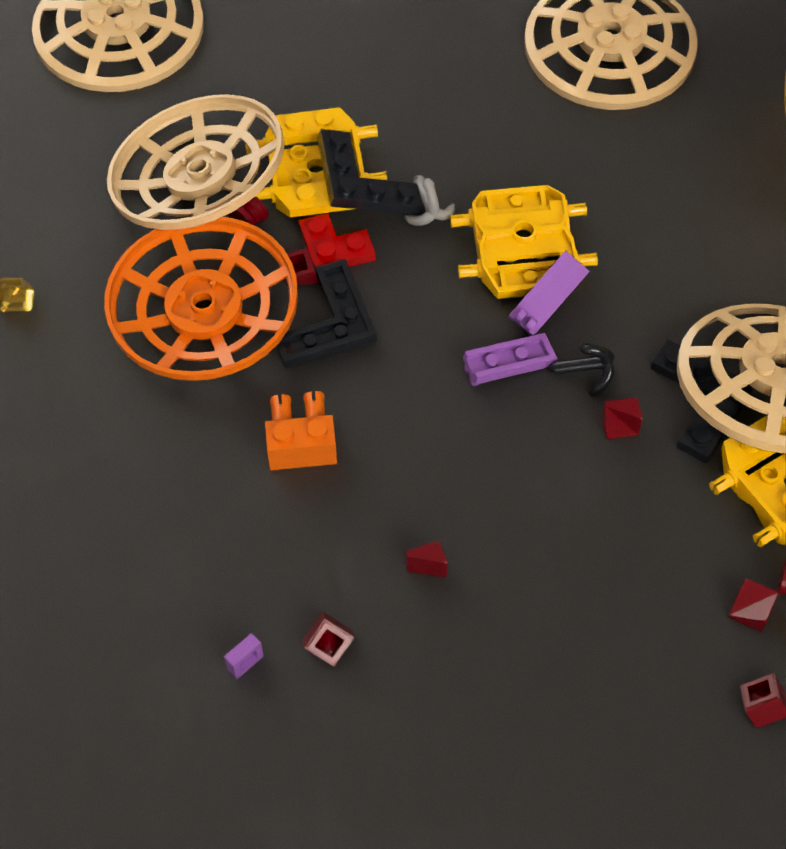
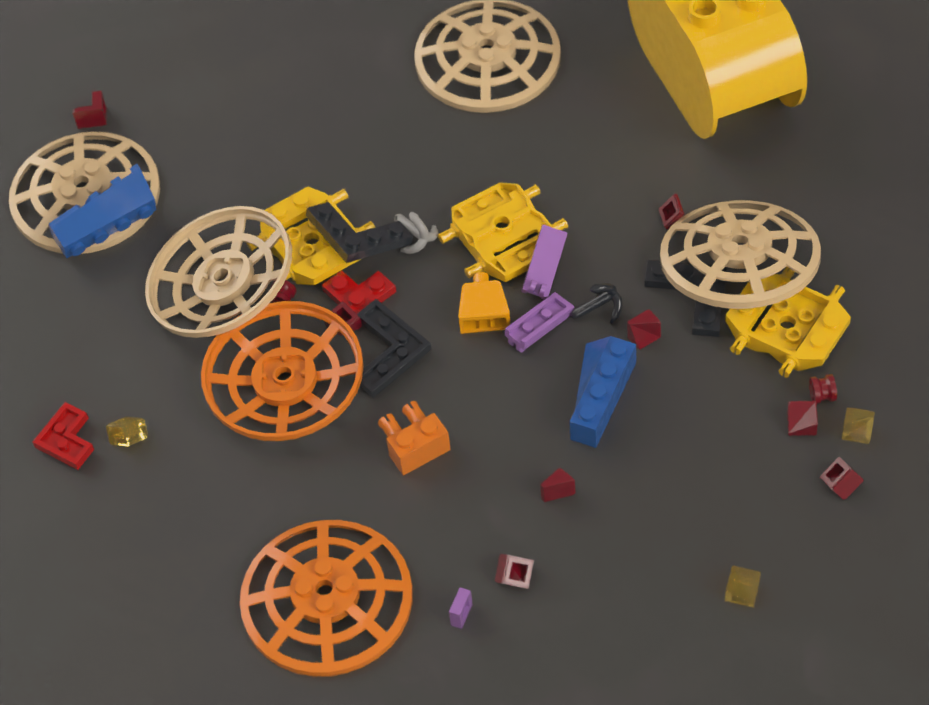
camera: 20 degrees left, 5 degrees down
(111, 588) = (329, 607): none -> orange dish
(114, 52) = (104, 214): none -> blue wedge
(455, 315) = (483, 306): none -> light orange torso
(545, 458) = (602, 380): none -> blue wedge
(579, 781) = (742, 586): none -> clear yellow slope
(723, 294) = (671, 211): none -> dark red slope

